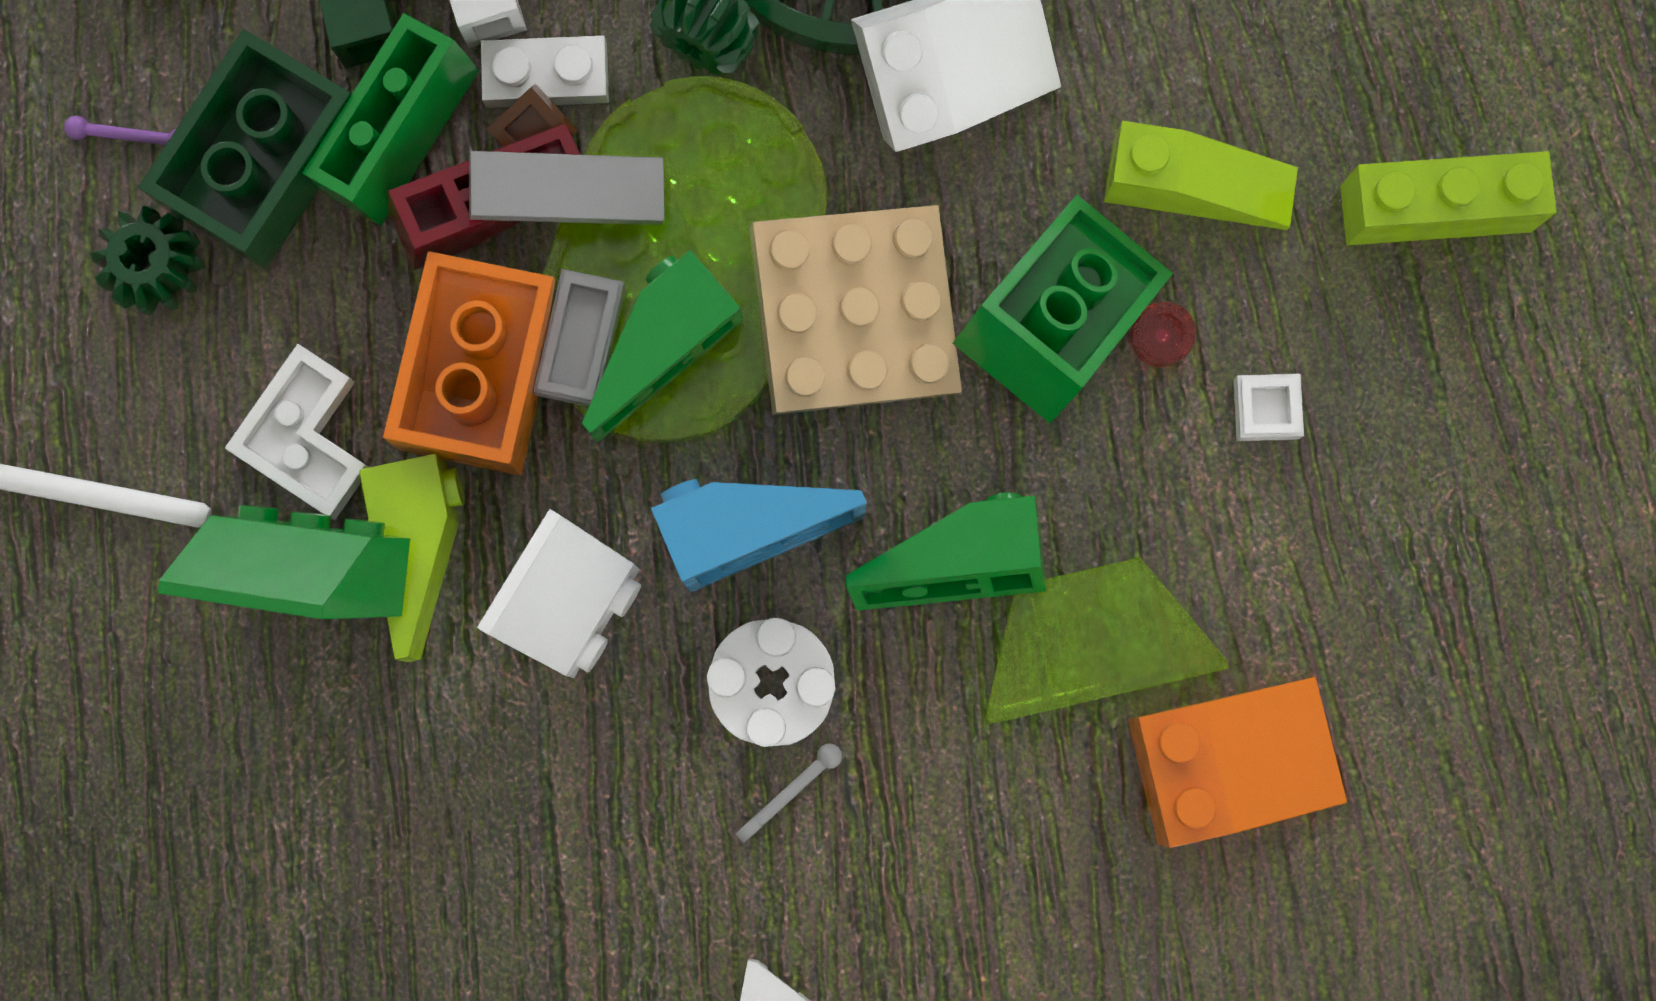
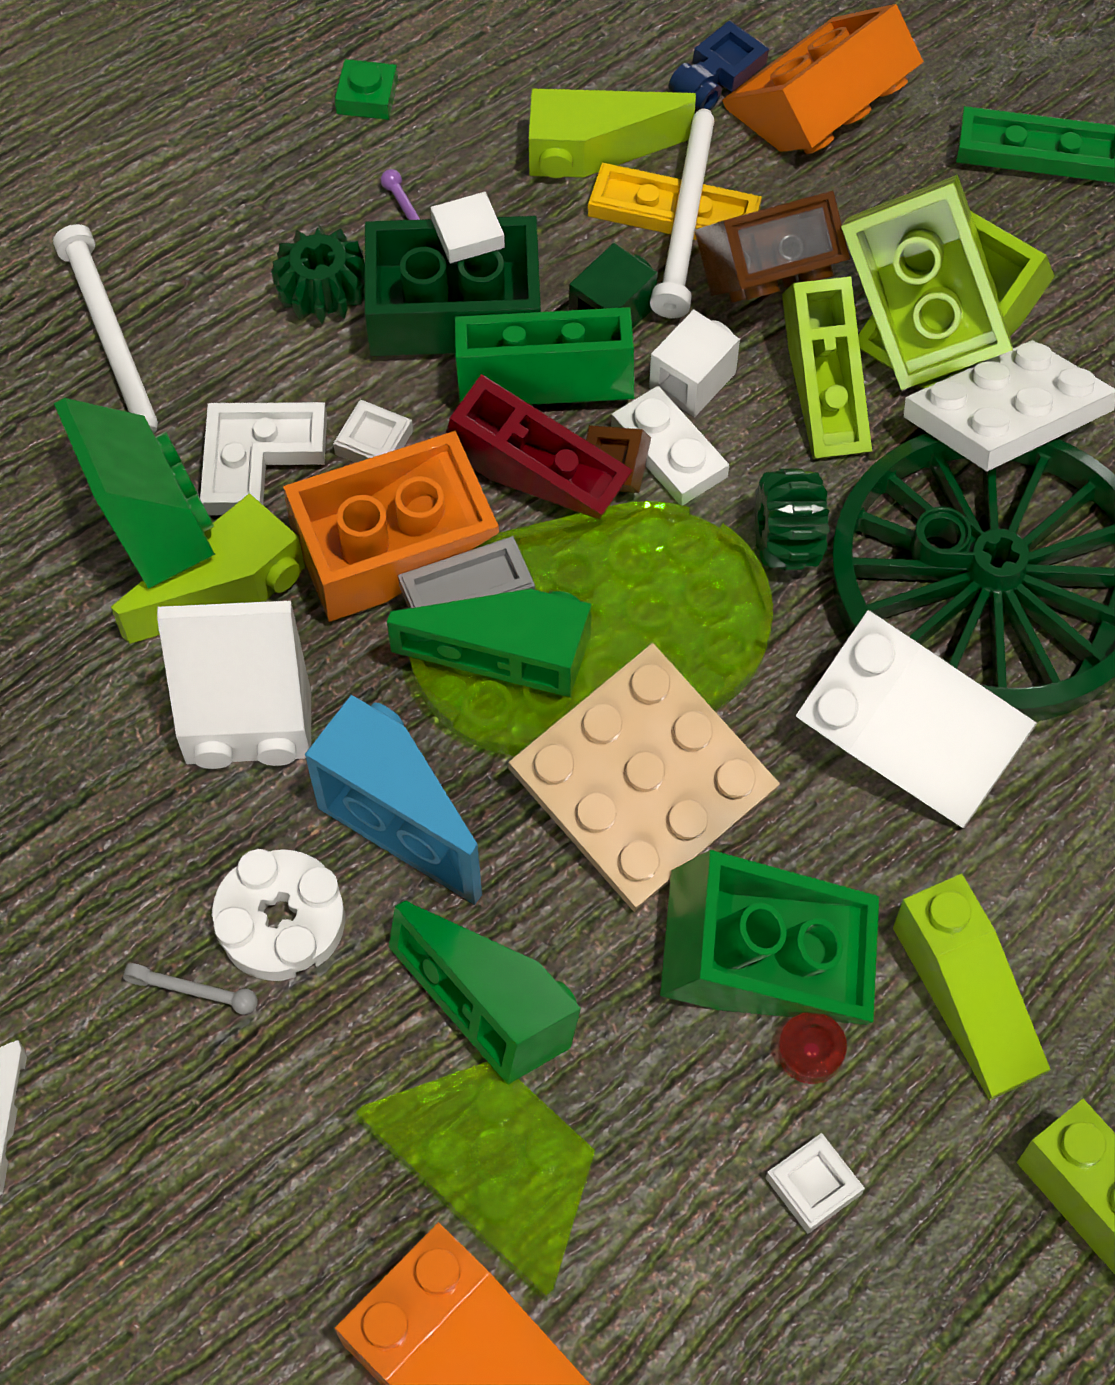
camera: 55 degrees right, 20 degrees down
(217, 99) = (467, 227): none -> white tile
(355, 321) = (371, 433): none -> white tile
(566, 188) = (578, 496): light grey tile -> none

